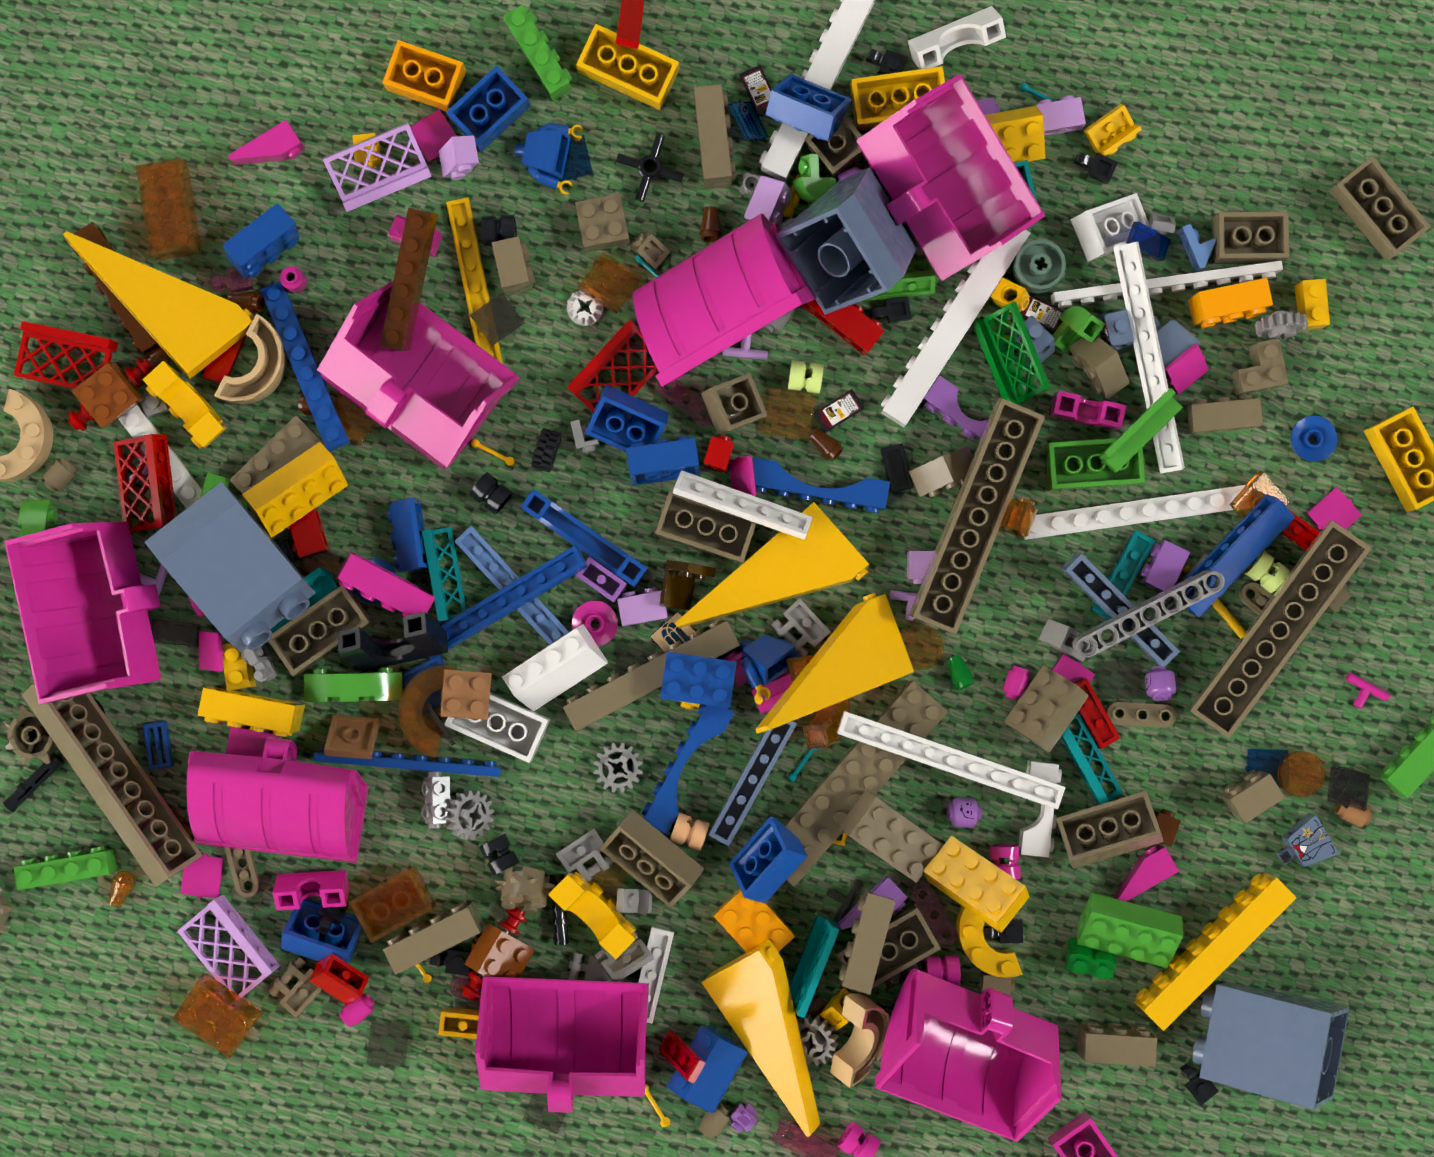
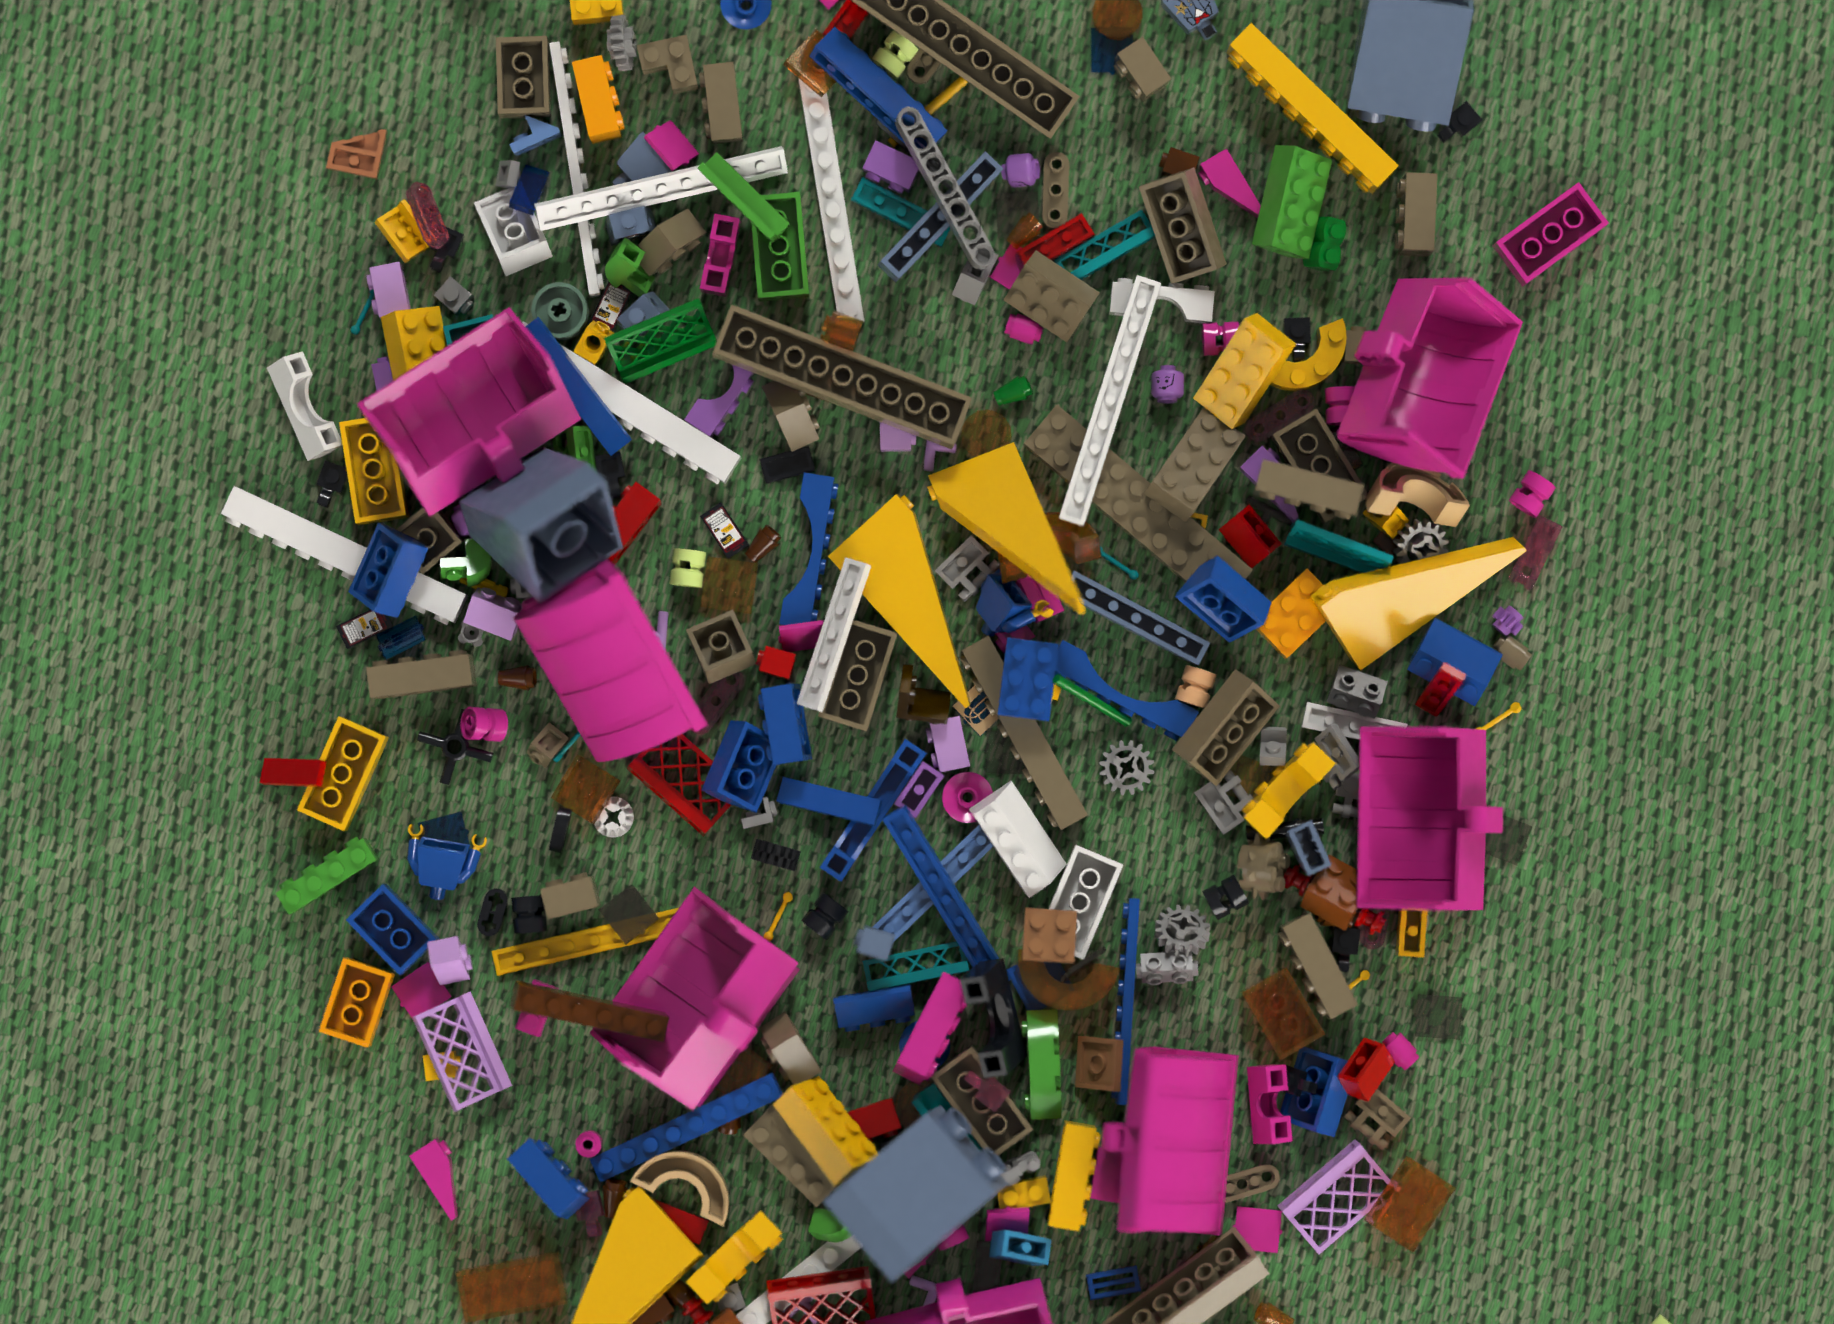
camera: 90 degrees left, 0 degrees up
(187, 662) = (1020, 1248): none -> dark azure brick
(326, 637) = (989, 1091): none -> clear pink plate
(370, 458) = (787, 1047): none -> dark tan brick
(462, 535) = (874, 942): none -> sand blue arch
(504, 194) = (498, 913): none -> black beam
(539, 932) = (1308, 848): none -> sand blue torso
(573, 259) = (560, 829): none -> black beam
(593, 499) = (829, 801): none -> blue tile
(602, 223) = (519, 798): dark tan brick -> none
(669, 195) = (484, 724): none -> dark pink wheel
(679, 736) = (1092, 700): none -> green bar
(682, 978) = (1357, 691): none -> dark grey brick
(824, 884) = (1250, 536): none -> red brick
(969, 279) = (582, 394): none -> blue tile
(1052, 175) = (454, 296): none -> light grey bracket
(1106, 686) = (1025, 230): none -> clear orange cone
(1126, 149) = (427, 215): none -> clear pink plate
(1180, 91) = (358, 155): none -> nougat wing

